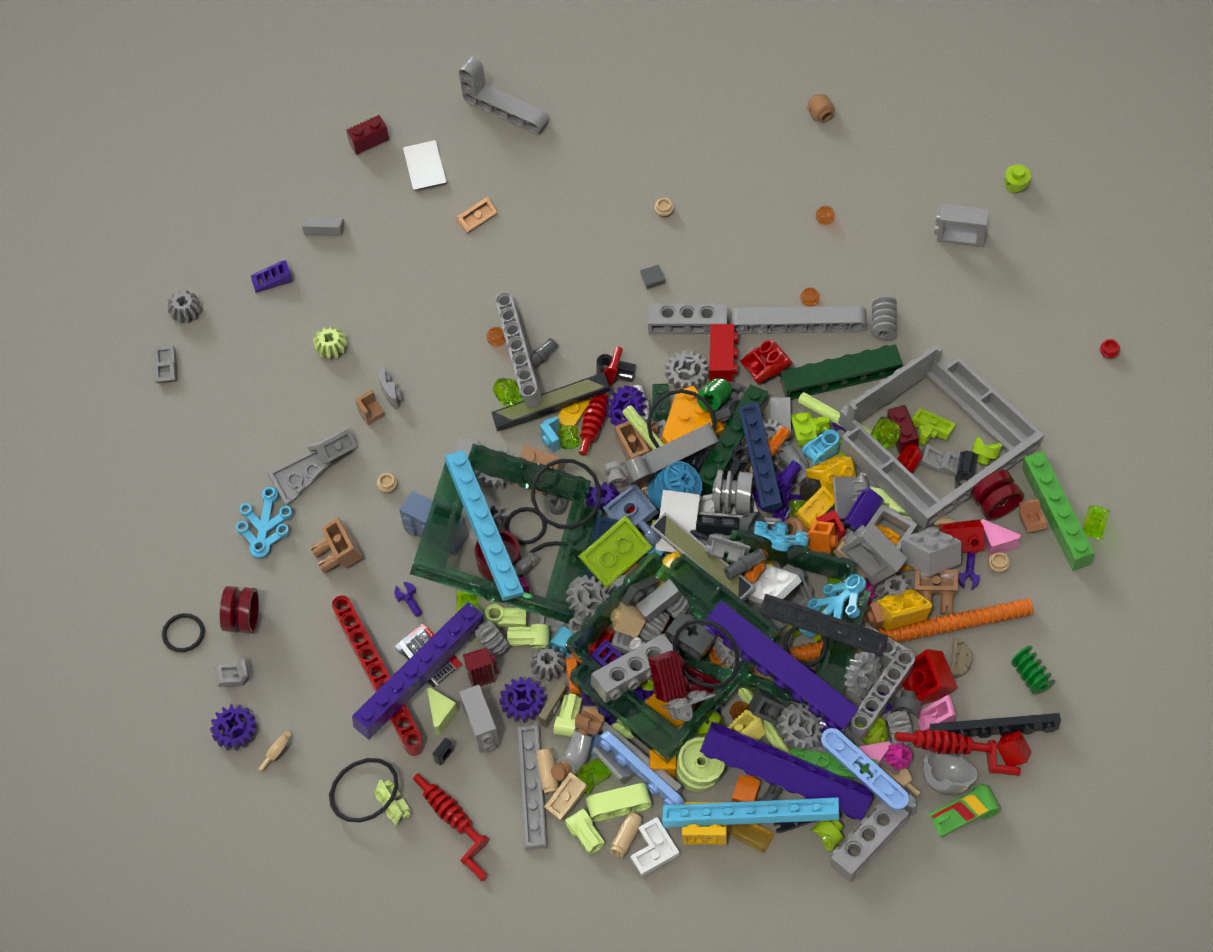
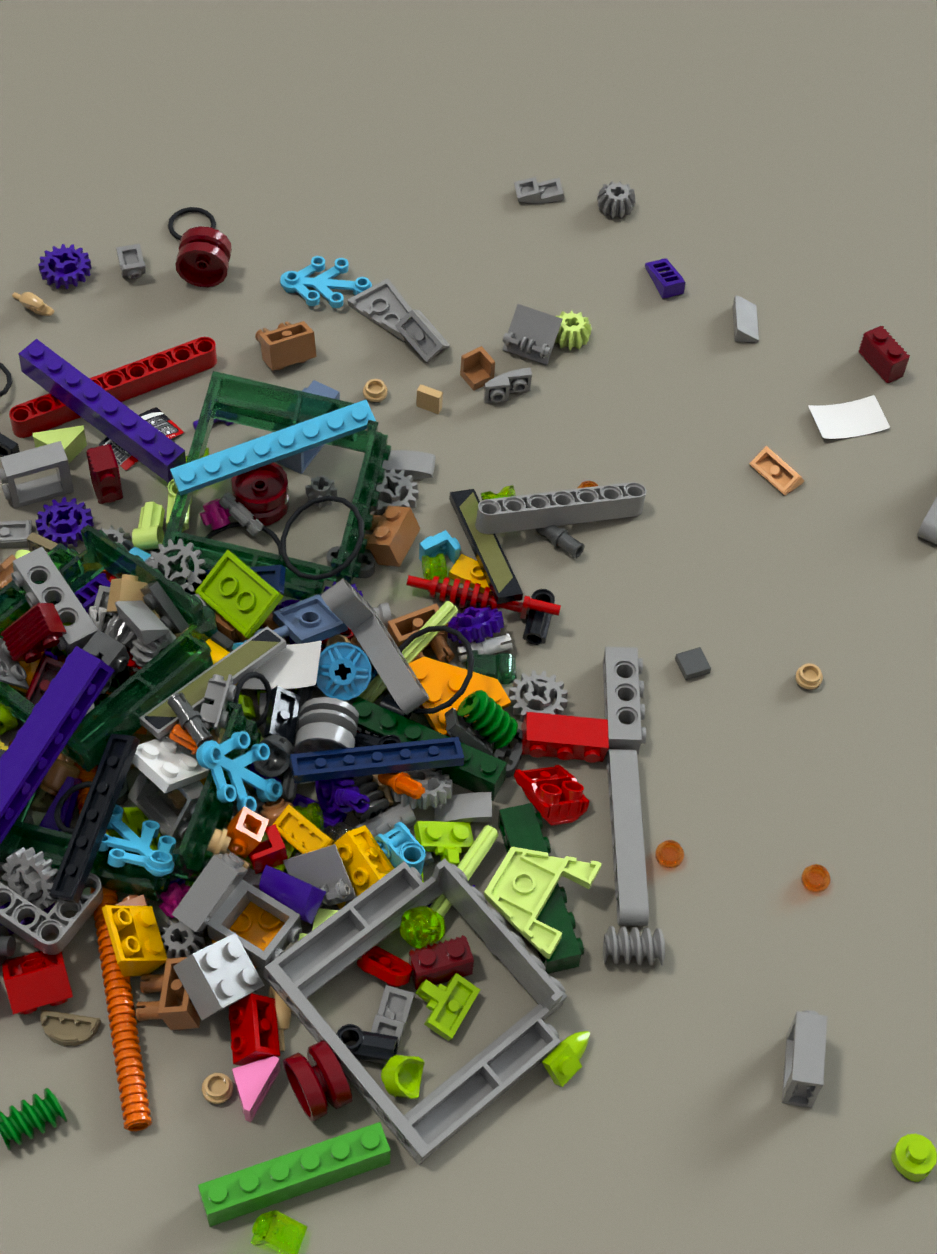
camera: 80 degrees right, 5 degrees down
(336, 367) = (532, 334): none -> light grey hinge
(400, 441) = (429, 399): none -> tan tile
(491, 638) = (145, 486): light grey gear -> none
(544, 525) = (323, 544): black piece -> none
(709, 622) = (17, 693): black piece -> none
(836, 548) = (219, 841): none -> tan plate
(851, 372) = (525, 885): none -> yellowish green wing
(969, 358) = (564, 1059): none -> lime plate
(969, 573) = (203, 1047): dark purple bar -> none
(1031, 516) = (286, 1137): nougat bracket -> none

